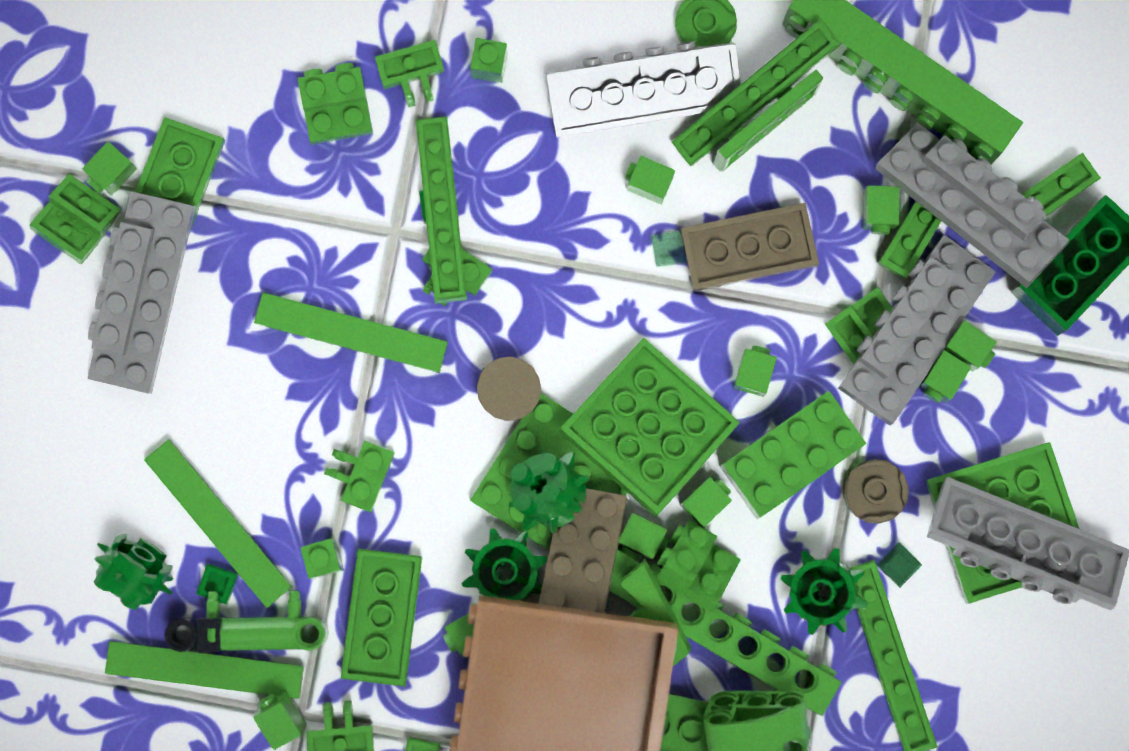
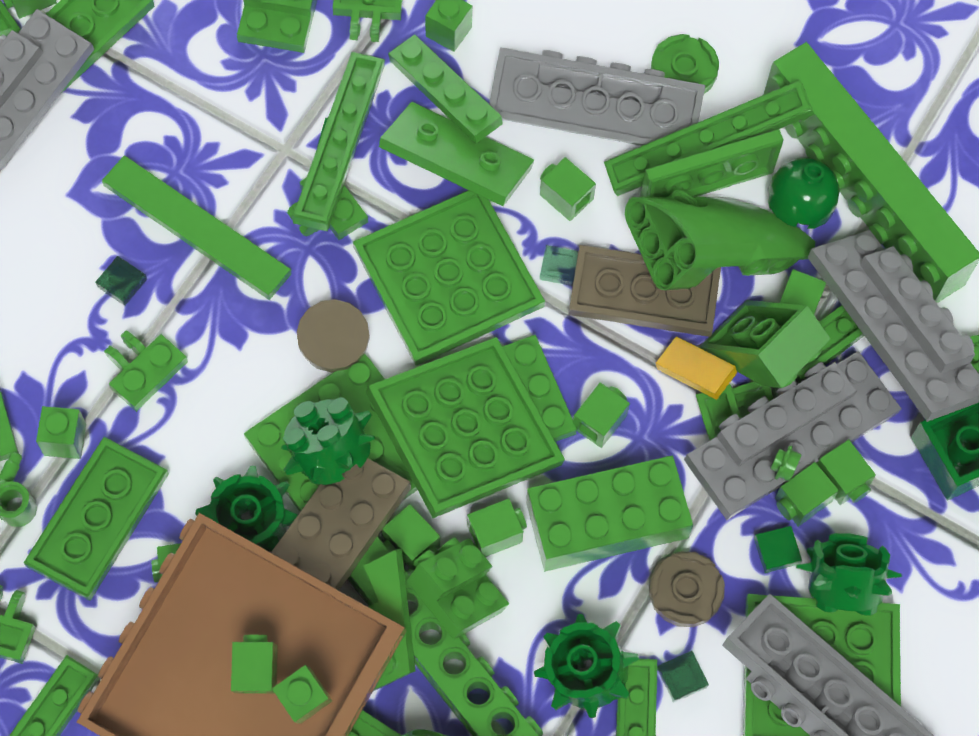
camera: 20 degrees right, 15 degrees down
(309, 405) = (121, 280): none -> tile
(511, 125) = (445, 89): none -> bright green plate
(545, 183) = (448, 152): none -> bright green plate
(574, 706) = (254, 665): none -> bright green brick
(581, 295) = (448, 275): none -> bright green plate
(621, 715) = (302, 694): none -> bright green brick
(694, 363) = (541, 386): none -> bright green plate
(789, 179) = (692, 236): none -> bright green panel
(817, 301) = (696, 367): none -> yellow tile
(850, 108) = (804, 192): none -> green cylinder
(868, 260) = (768, 341): none -> bright green slope
(923, 365) = (785, 463): none -> bright green plate
(936, 430) = (778, 549): none -> green tile
(1003, 435) = (848, 574): none -> green brick

